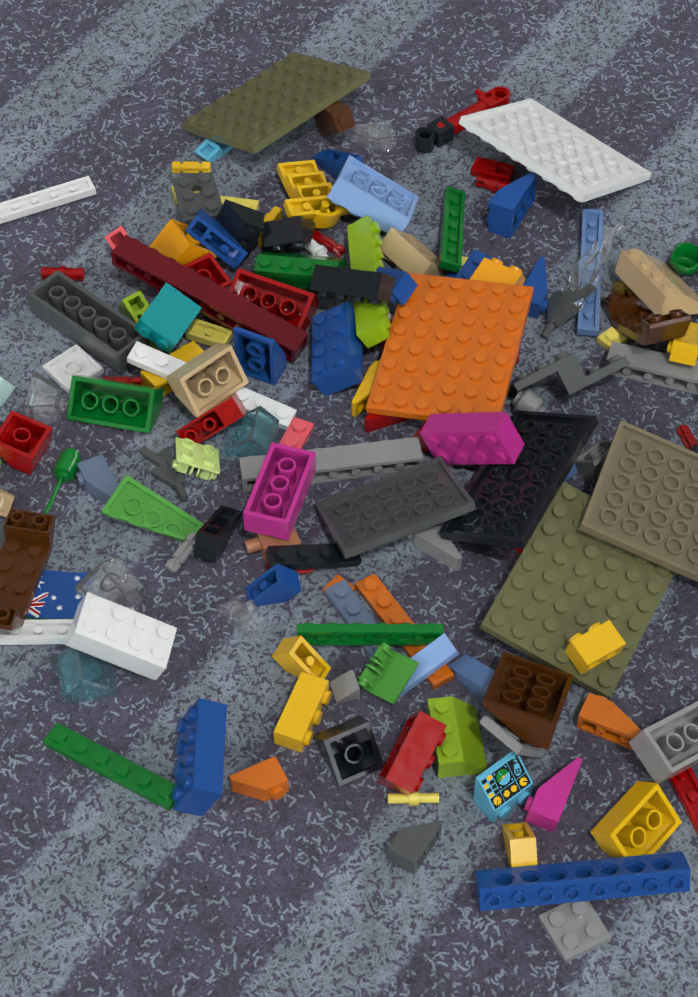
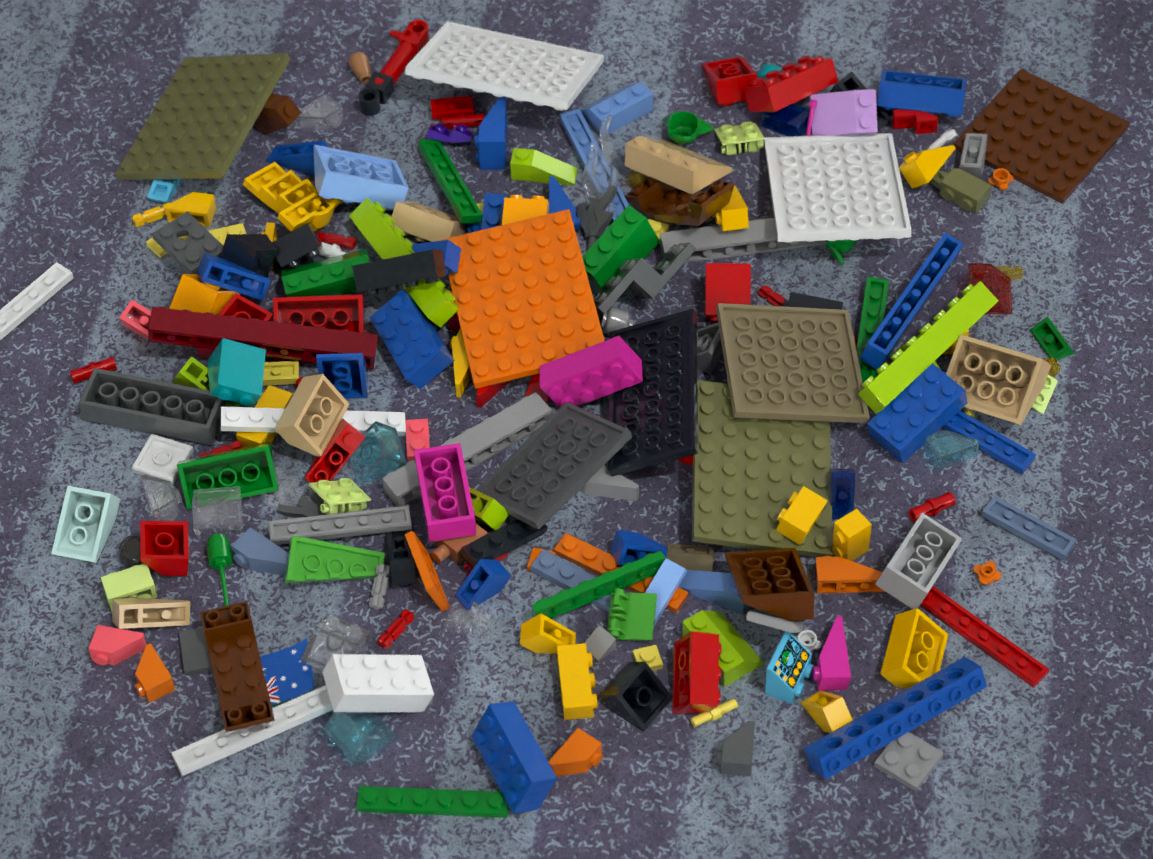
camera: 25 degrees left, 0 degrees up
(85, 429) = (217, 510): none -> clear slope
(174, 595) = (395, 629): none -> red axle
(182, 484) = (341, 524): none -> light grey tile
(227, 174) = (199, 205): none -> yellow slope
(227, 555) = (427, 571): none -> orange tile
(312, 522) = (487, 510): none -> lime slope
(382, 720) = (650, 655): none -> light yellow plate
(426, 609) = (633, 546): none -> blue slope
(435, 108) = (360, 66): none -> medium nougat cone
(470, 187) = (458, 133): none -> dark purple slope
(475, 643) = (691, 557): none -> dark tan slope
(534, 243) = (537, 167): none -> lime slope
(539, 763) = (811, 637): none -> white plate
(576, 333) = (624, 239): none -> green slope
(633, 687) = (851, 536): none -> yellow brick
(641, 222) = (623, 105): none -> medium blue slope
(648, 410) = (726, 284): none -> red slope
(650, 643) = (842, 491): none -> clear blue slope

